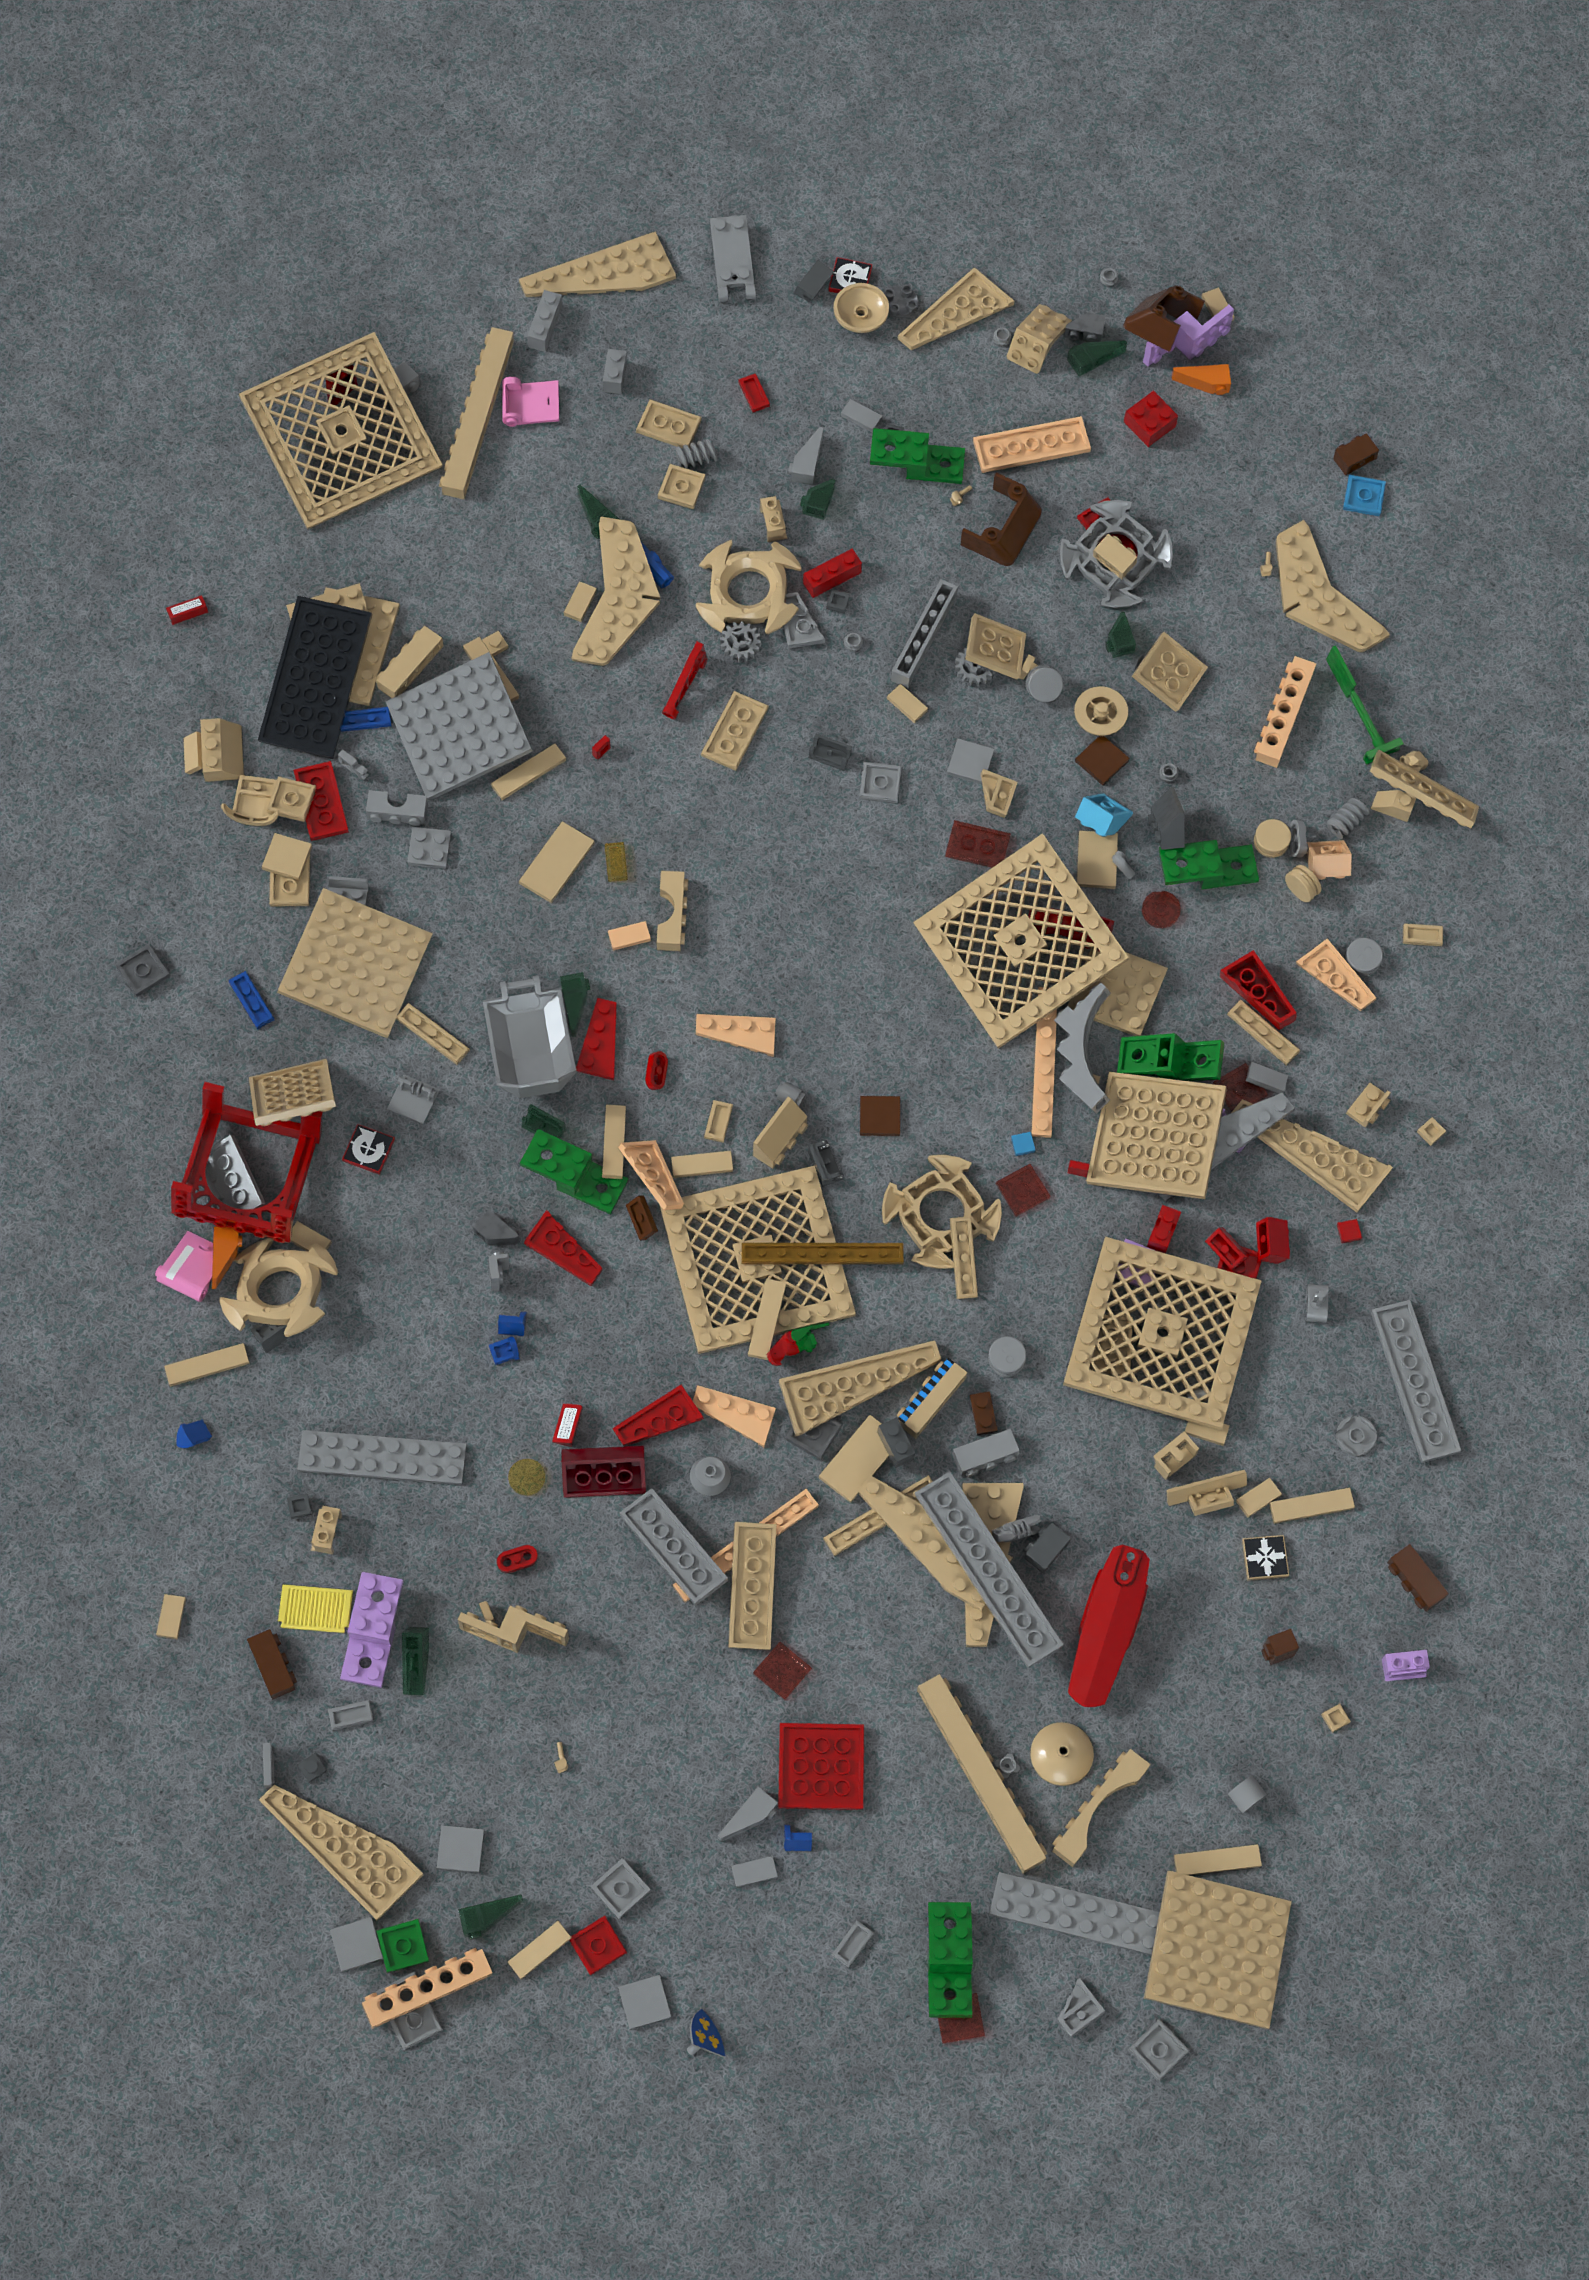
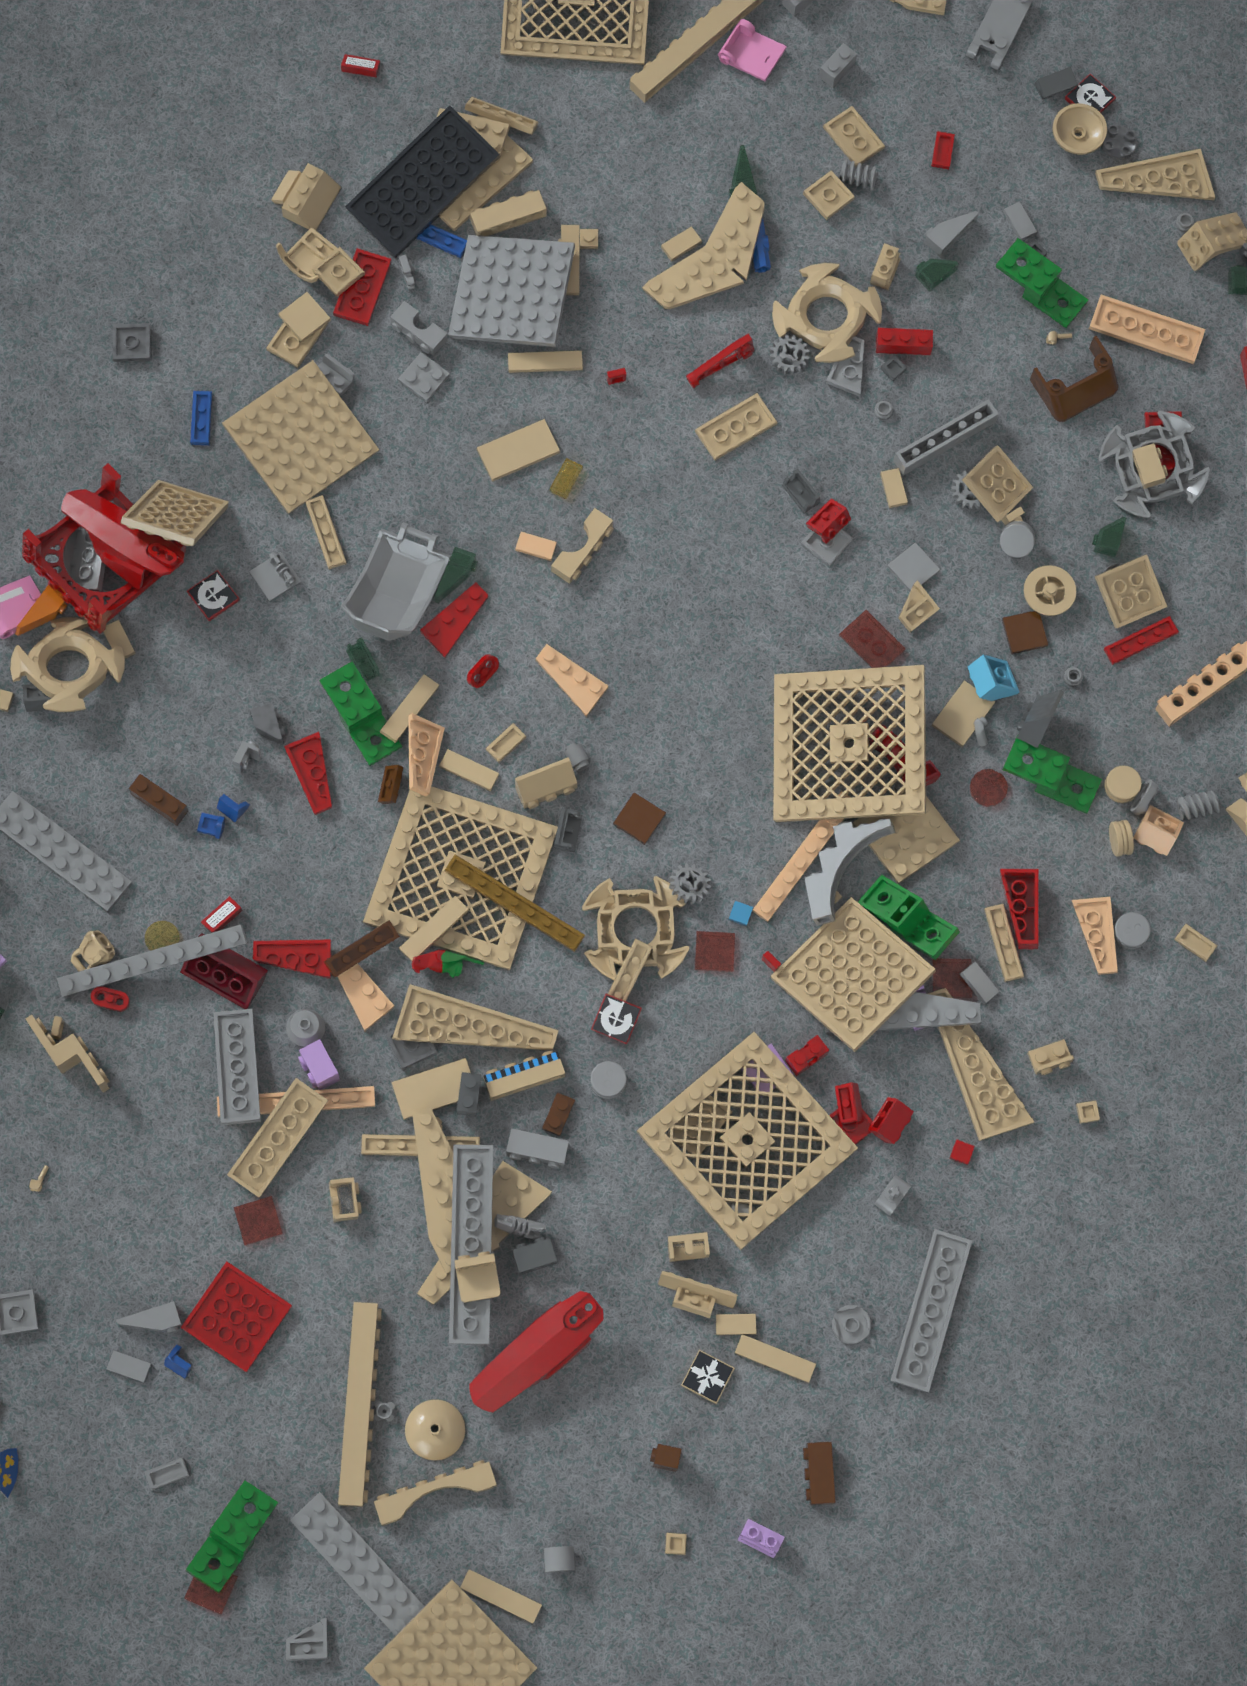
camera: 30 degrees right, 5 degrees up
(259, 1150) = (119, 547): none -> red piece
(345, 580) = (501, 115): none -> tan tile
(442, 1356) = (158, 799): none -> reddish brown brick
(475, 1525) = (94, 949): none -> tan piece
(535, 1500) = (152, 960): none -> light grey plate
(715, 1375) = (361, 948): none -> reddish brown plate
(746, 1499) = (318, 1063): none -> lavender brick
(847, 1603) = (344, 1200): none -> tan window
(872, 762) = (829, 520): none -> red bracket
(963, 1144) = (691, 881): none -> light grey gear
(978, 1299) = (616, 1018): none -> tile
(1015, 1592) = (477, 1277): none -> tan bracket
(1204, 709) = (1141, 640): none -> red tile
(1207, 1433) = (729, 1246): tan tile -> none

